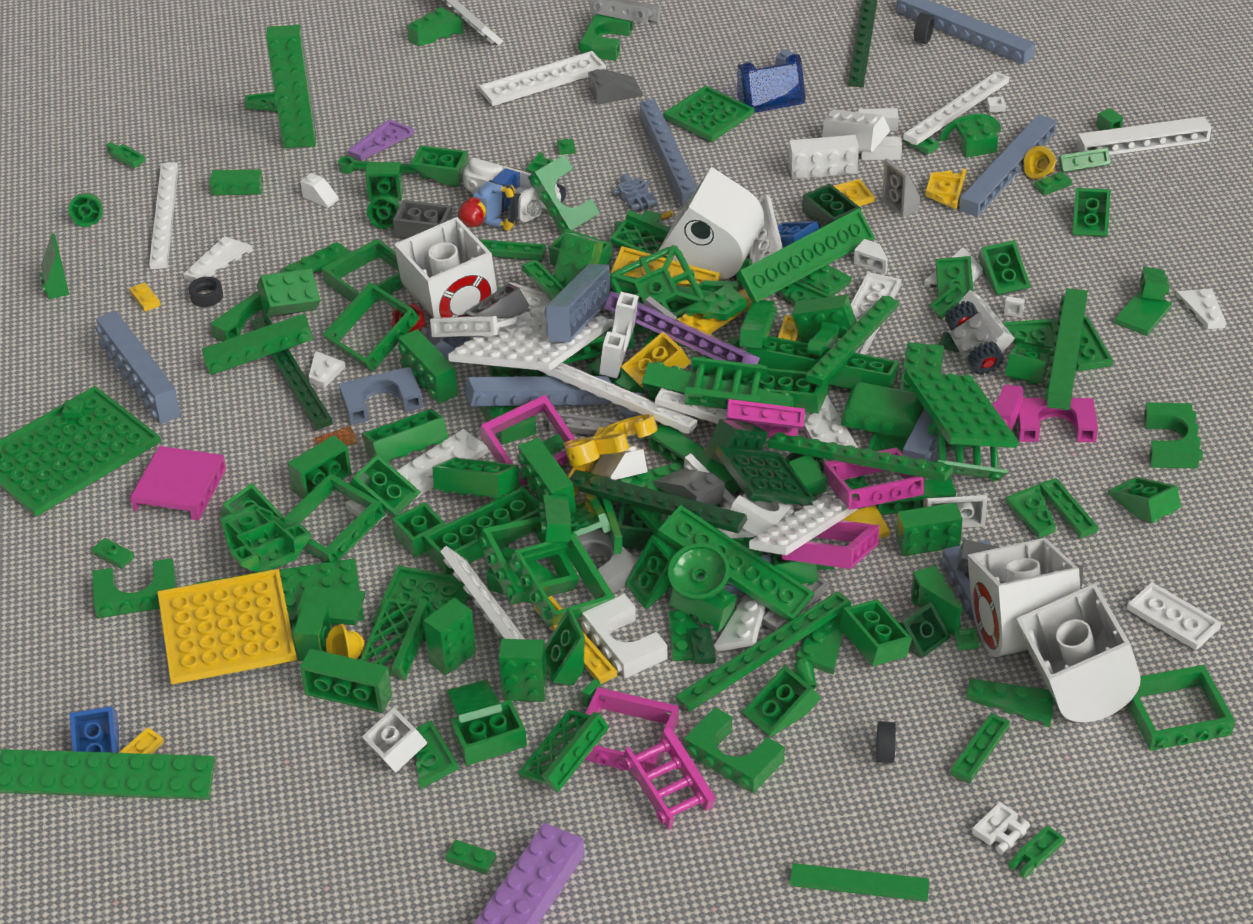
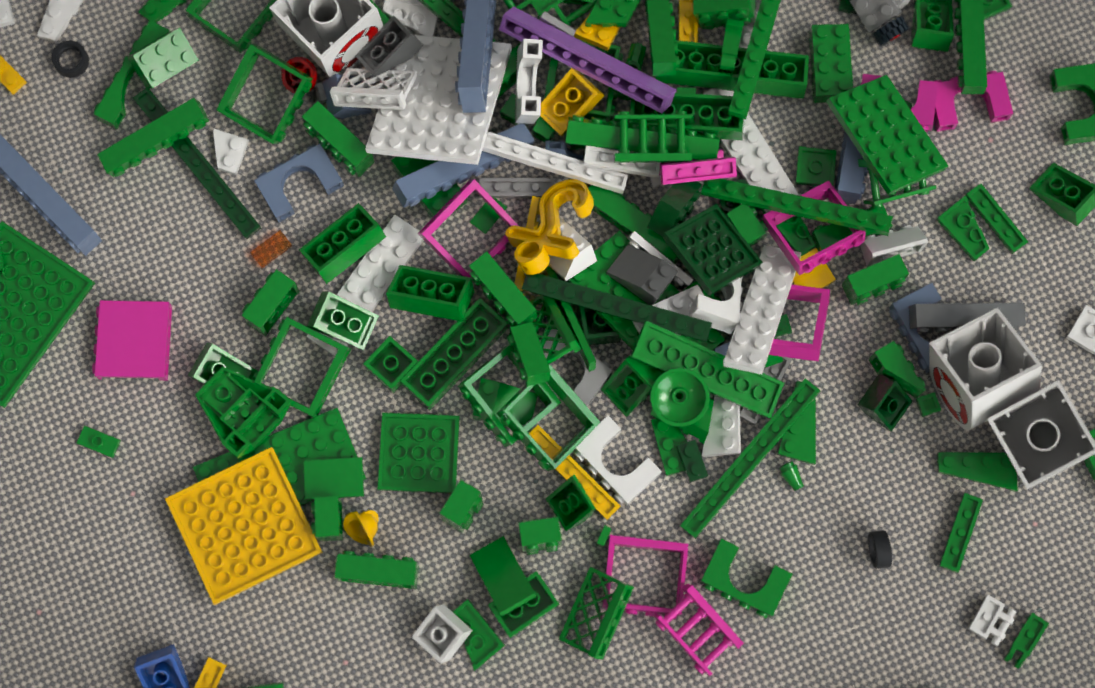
camera: 15 degrees left, 35 degrees up
(113, 602) = (118, 509): green arch -> none
(410, 639) = (422, 509): green fence -> none
(483, 598) = (490, 460): white plate -> none
(781, 702) = (776, 515): green slope -> none
(875, 632) = (847, 419): green brick -> none
(882, 410) = (804, 129): green windscreen -> none

